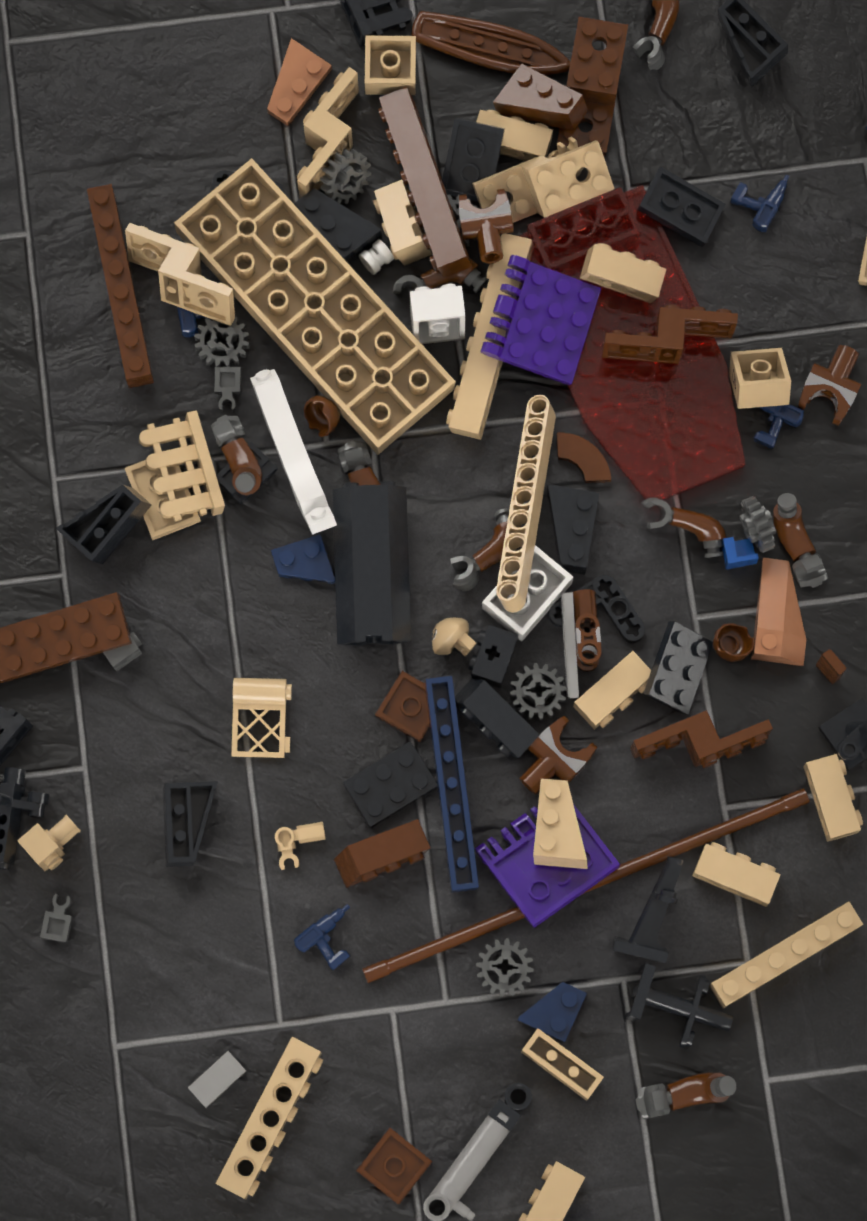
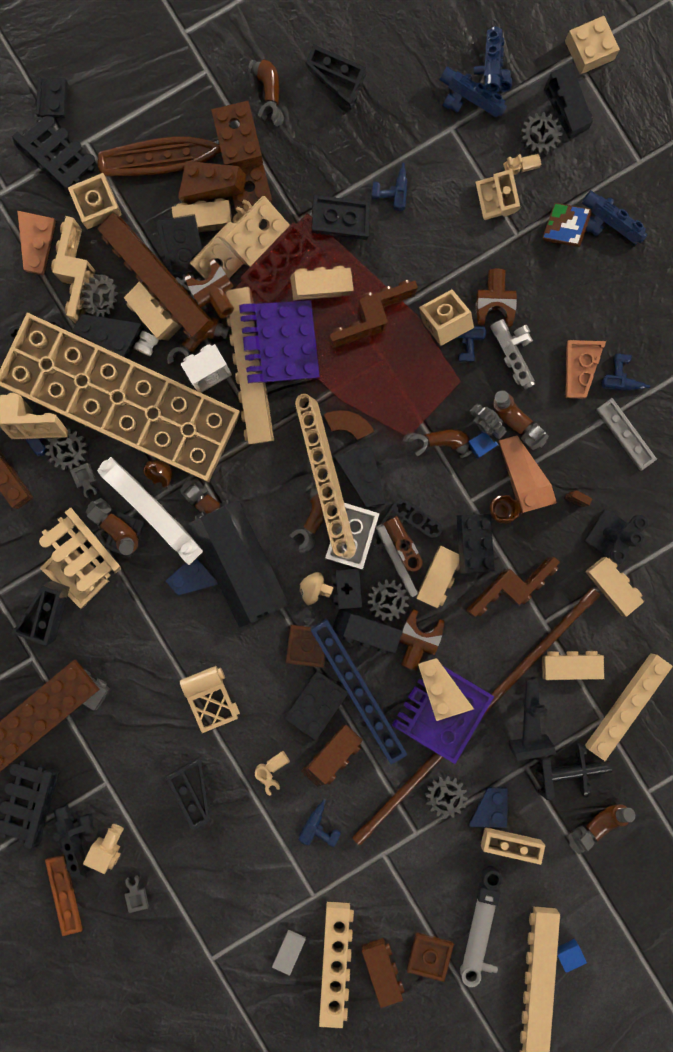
camera: 25 degrees left, 10 degrees up
(326, 1155) = (383, 972): none -> reddish brown brick
(824, 463) = (513, 356): none -> light grey piece

